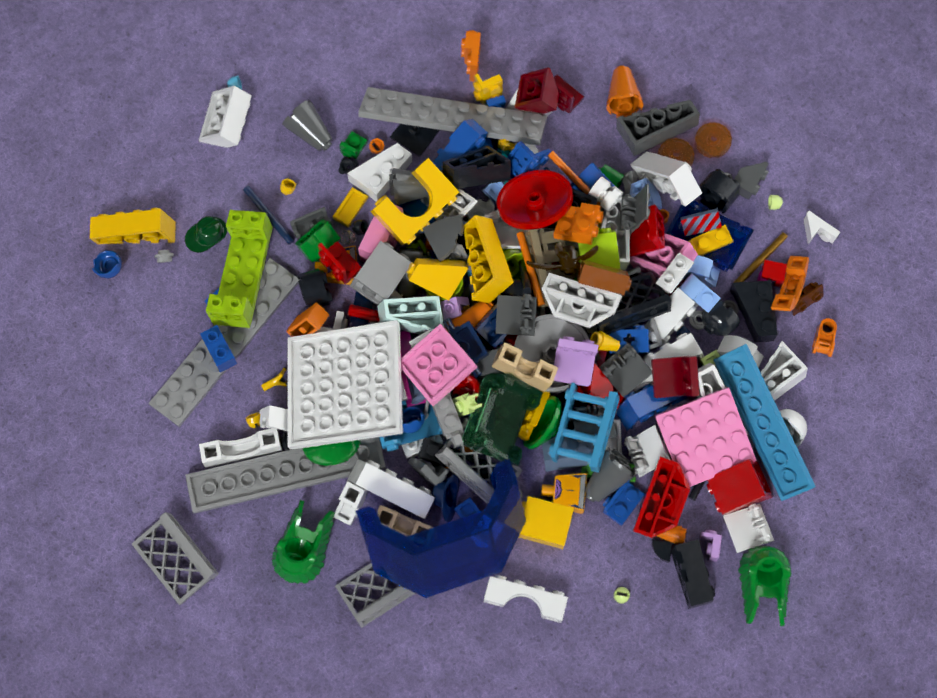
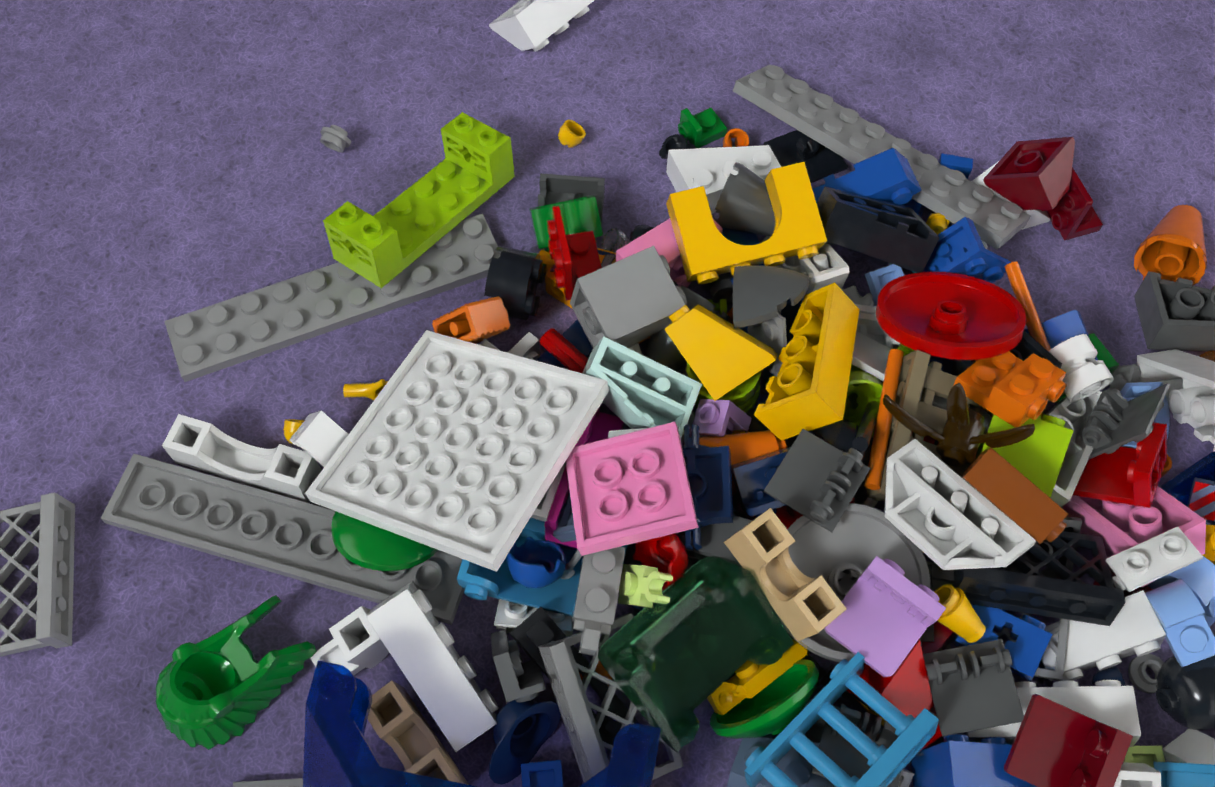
camera: 30 degrees right, 10 degrees down
(107, 264) = (250, 110): blue hair -> none
(132, 227) = (320, 80): yellow wedge -> none
(205, 234) = (413, 140): dark green piece -> none
(218, 348) = (312, 292): blue brick -> none
(275, 223) = (520, 159): dark blue bar -> none
(308, 126) = (651, 66): dark grey cone -> none
(350, 207) = (643, 206): yellow tile -> none
(471, 52) = (953, 83): orange plate -> none
(487, 89) = (954, 135): yellow bracket -> none

